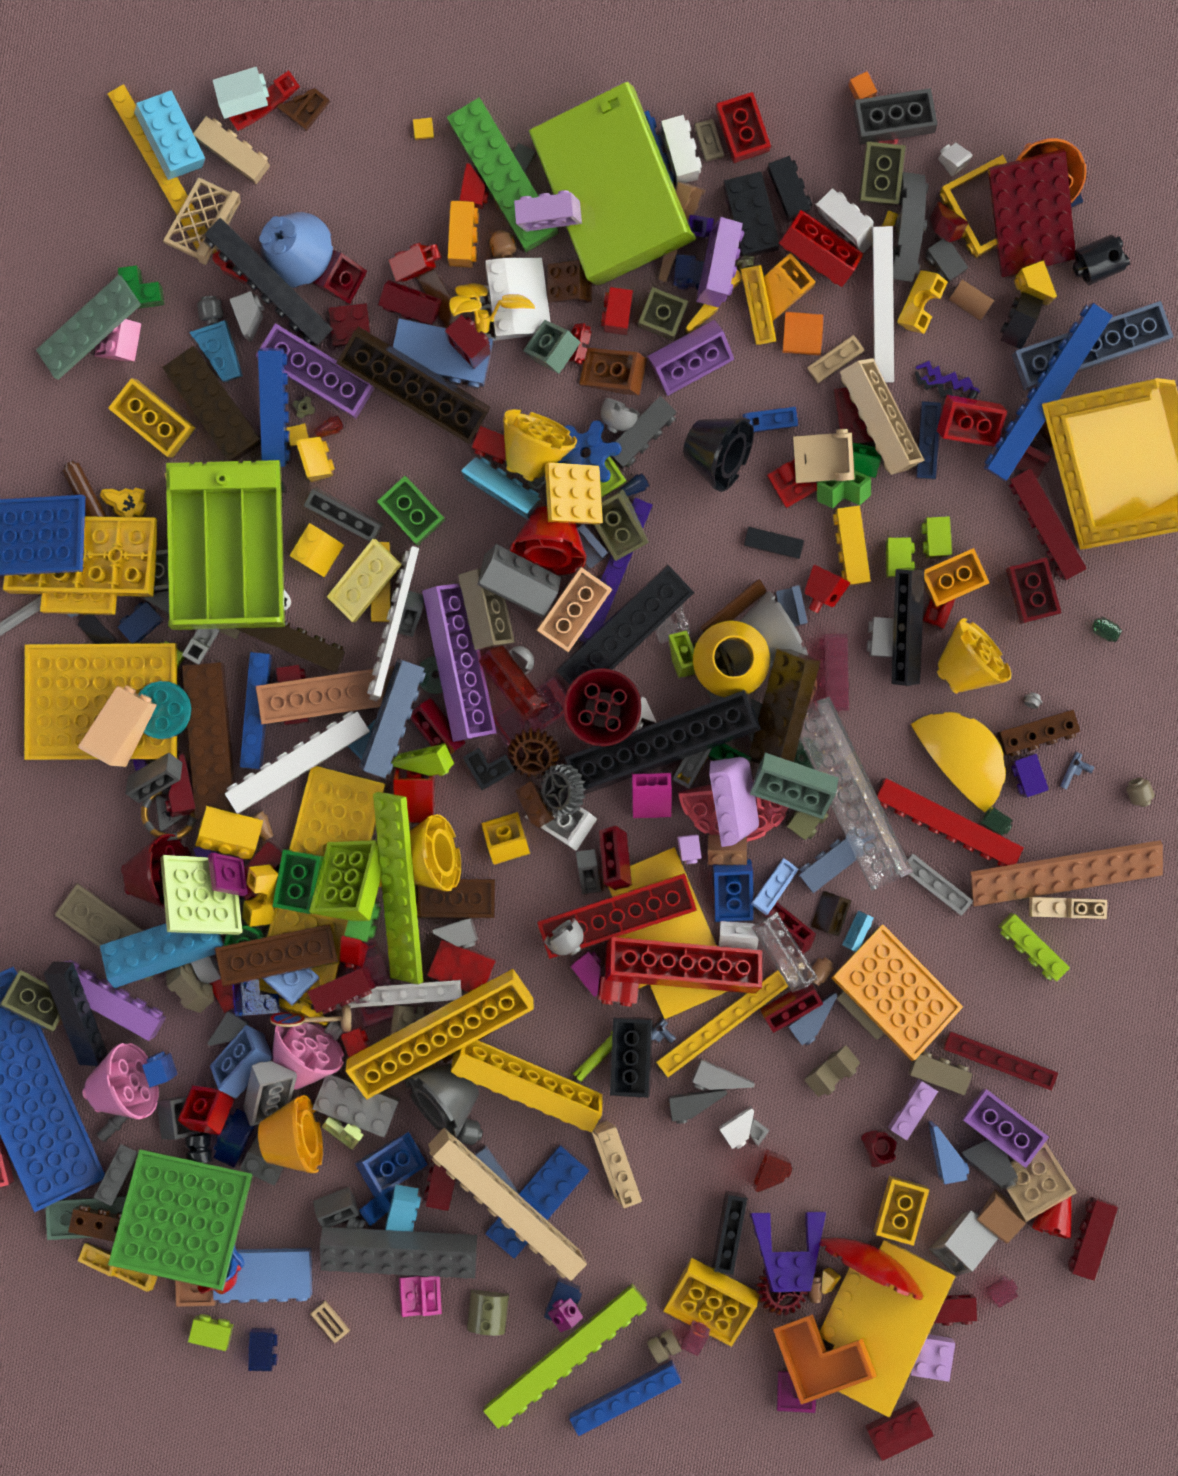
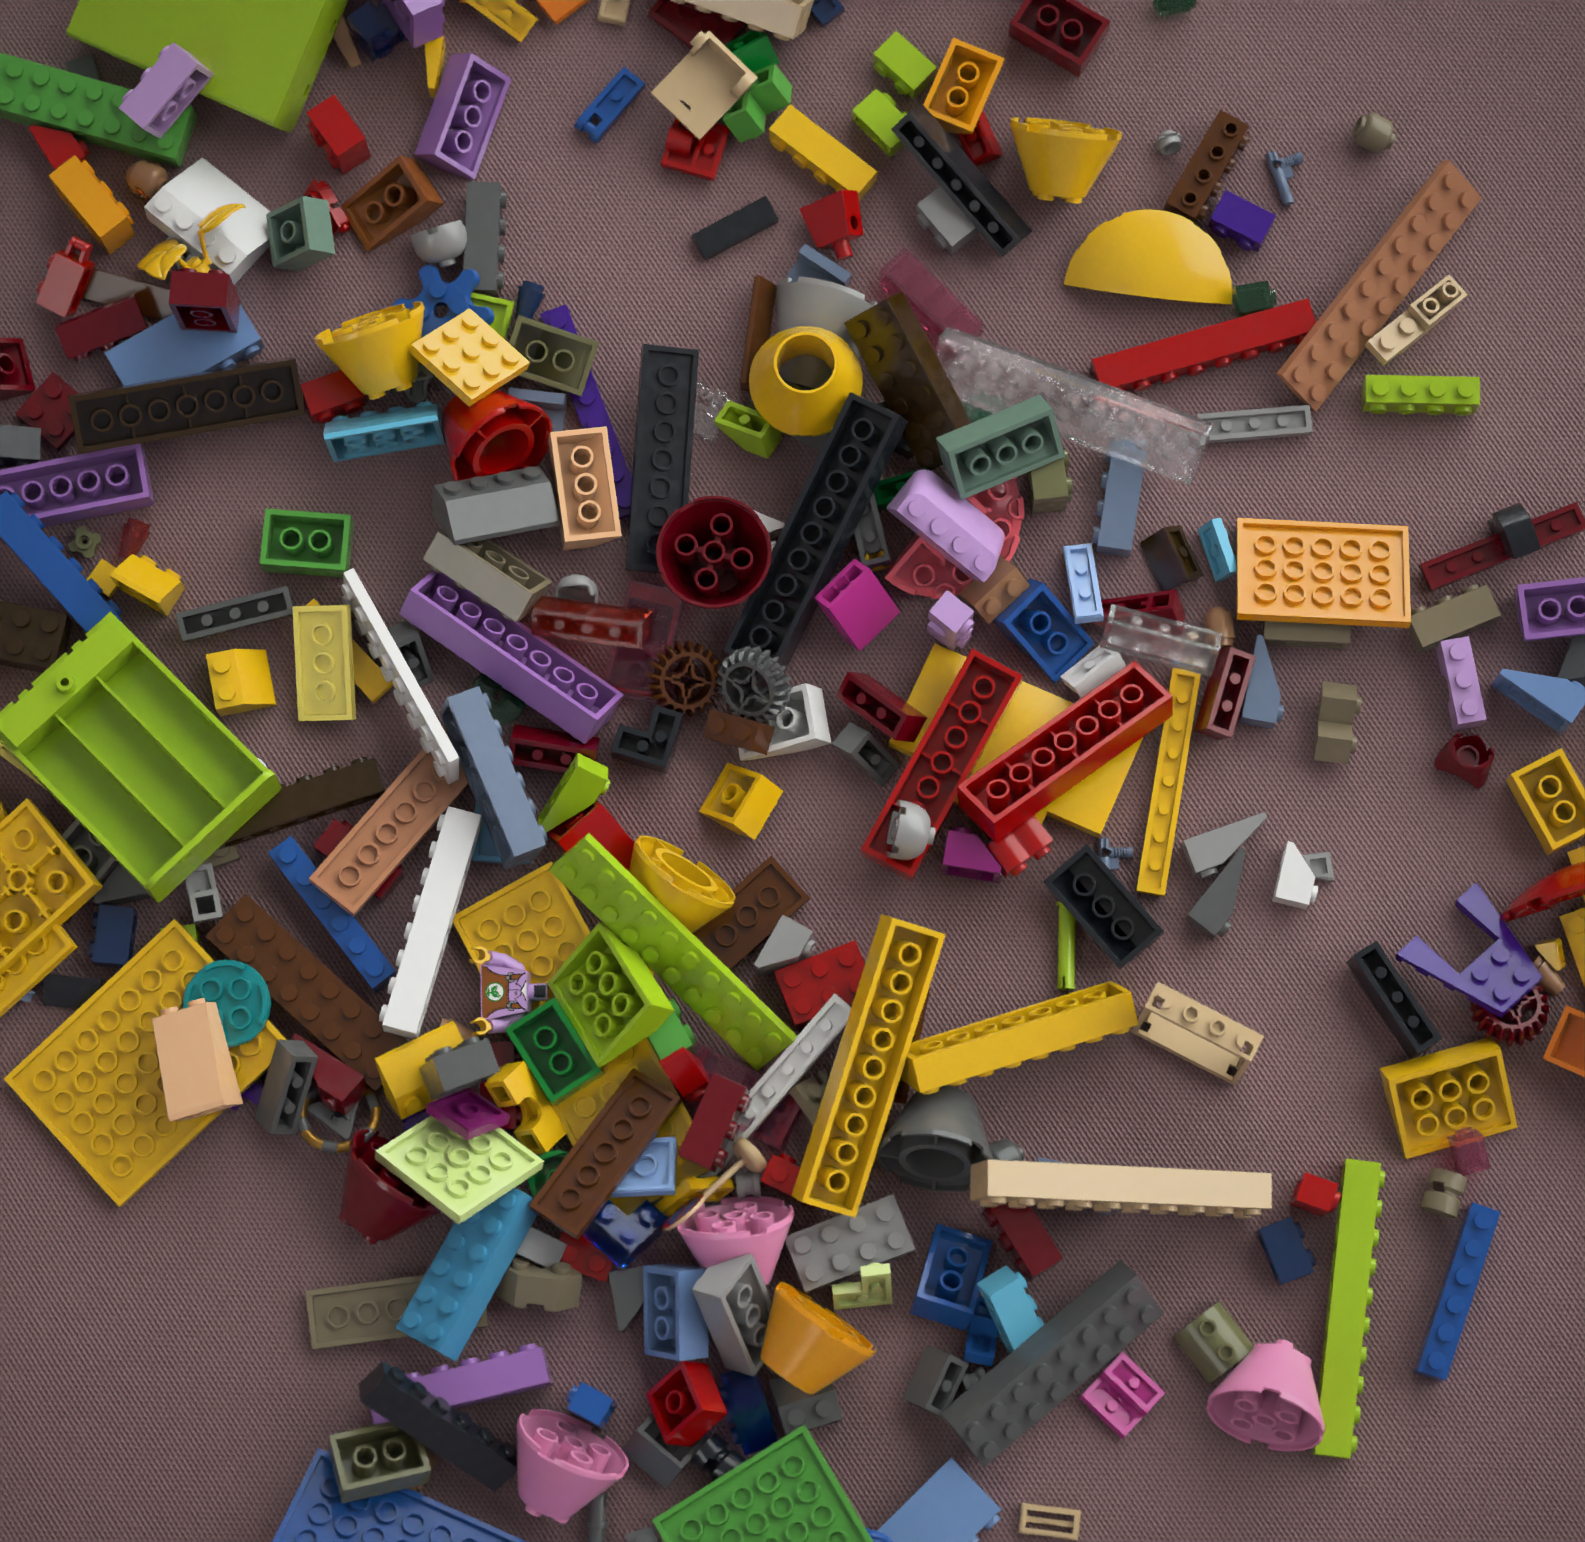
camera: 40 degrees left, 10 degrees down
(239, 852) = (459, 1068): none -> dark grey brick
(301, 829) = (504, 991): none -> torso
(488, 1366) = (1270, 1399): none -> bright pink cone
(544, 1193) = (1152, 1140): blue plate -> none
(565, 1314) = (1300, 1253): magenta brick -> none
(568, 282) = (255, 154): reddish brown bracket -> none
(600, 1290) = (1315, 1195): none -> red brick
(662, 313) = (389, 96): olive brick -> none
(719, 449) = (582, 177): black cone -> none
(772, 1171) = (1373, 887): clear red slope -> none
(1012, 1060) = (1515, 531): none -> black brick

